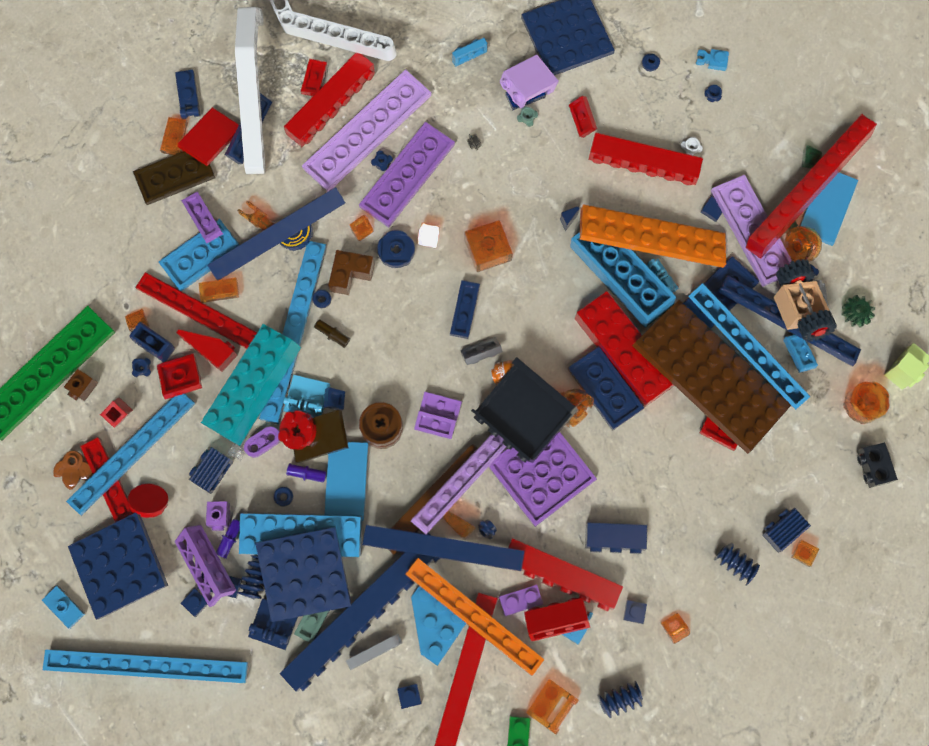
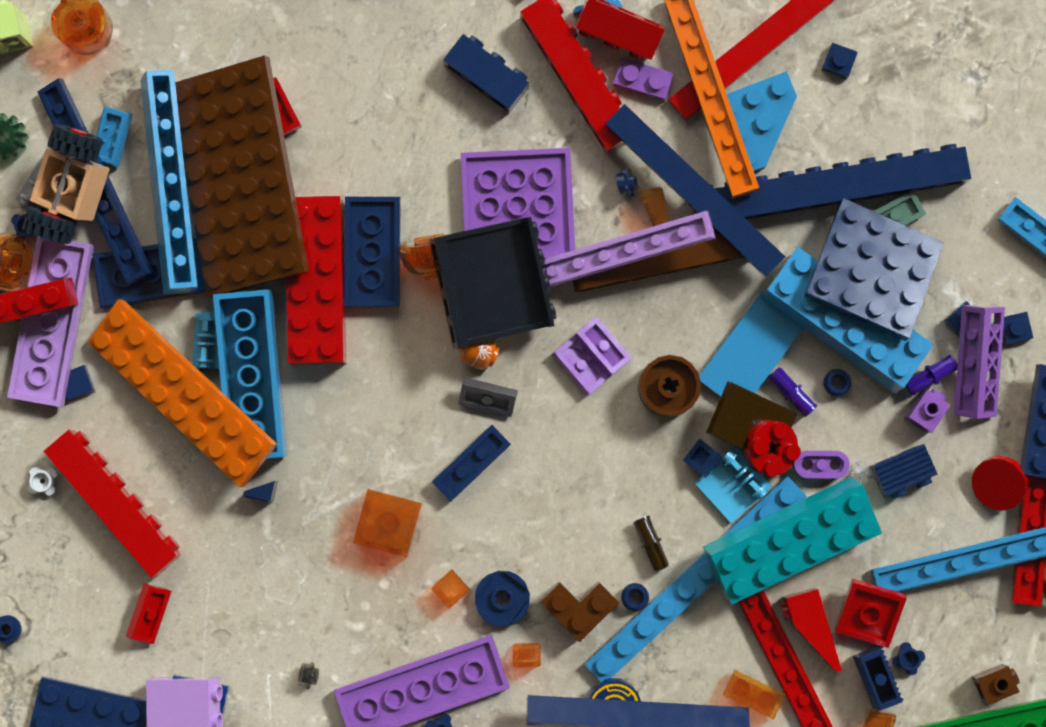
camera: 145 degrees left, 10 degrees up
(116, 412) = (973, 617): red brick -> none
(252, 581) = (935, 303): dark blue piece -> none
(268, 632) = (957, 241): dark blue hinge -> none
(374, 651) = (847, 133): light grey beam -> none
(527, 111) = (219, 656): sand green plate -> none

